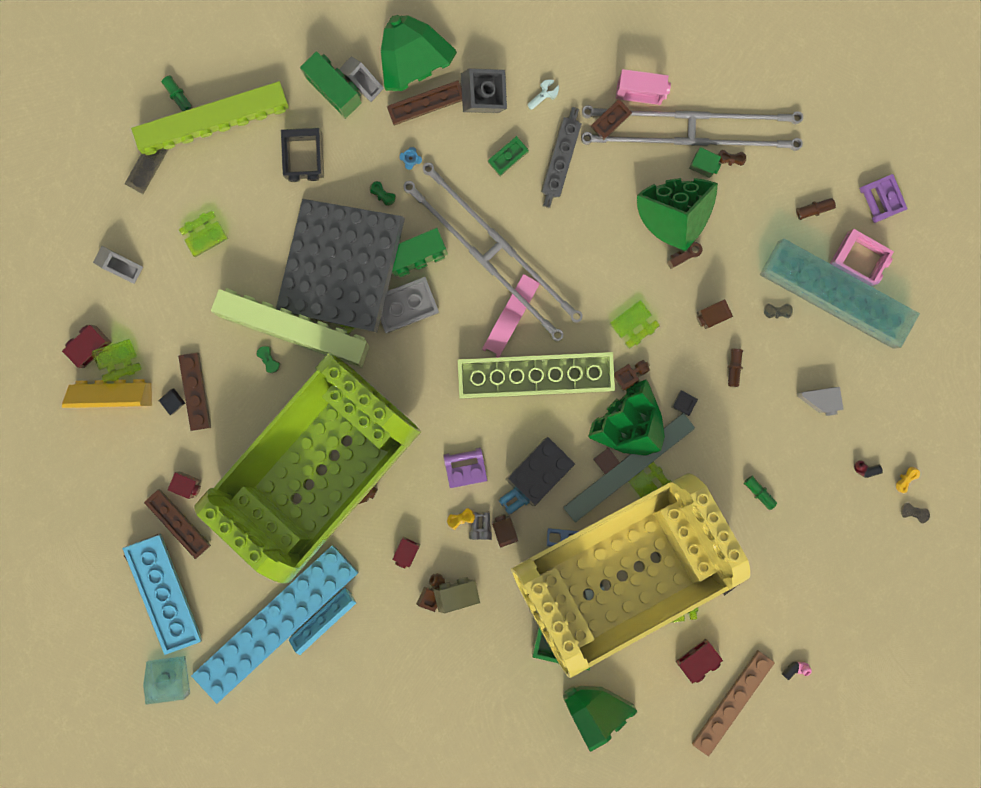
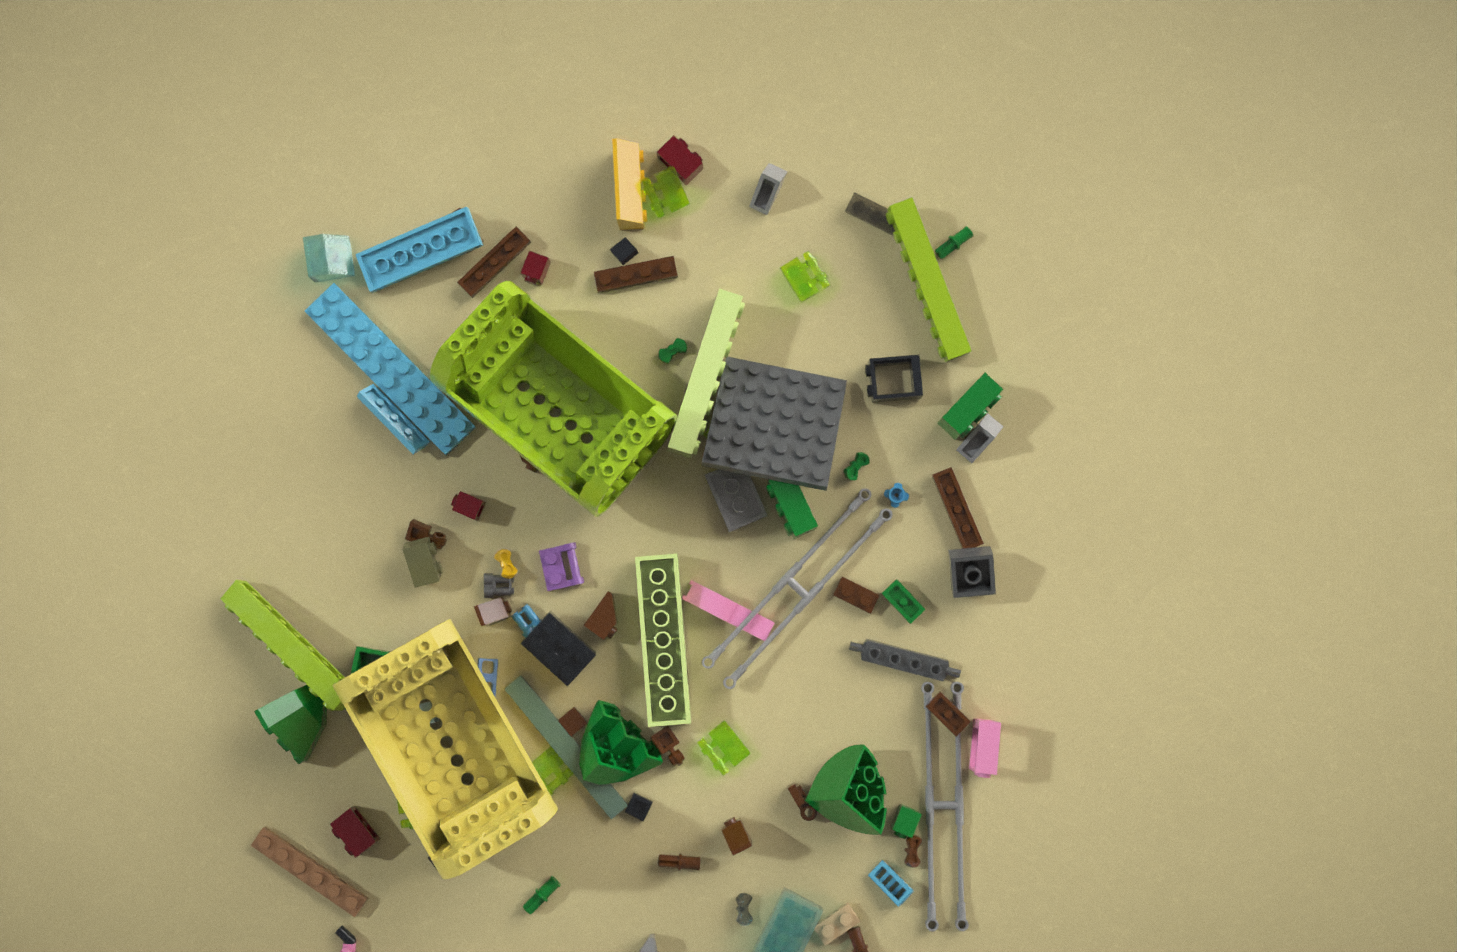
camera: 90 degrees right, 5 degrees down
(411, 52) = (1010, 492): green brick -> none
(501, 199) = (856, 595): none -> reddish brown plate
(514, 429) = (604, 618): none -> reddish brown slope
(526, 723) = (284, 642): none -> lime brick
(544, 94) = (973, 638): light aqua bar -> none
(771, 167) = (902, 884): none -> medium azure slope
(793, 228) = (836, 923): none -> tan plate

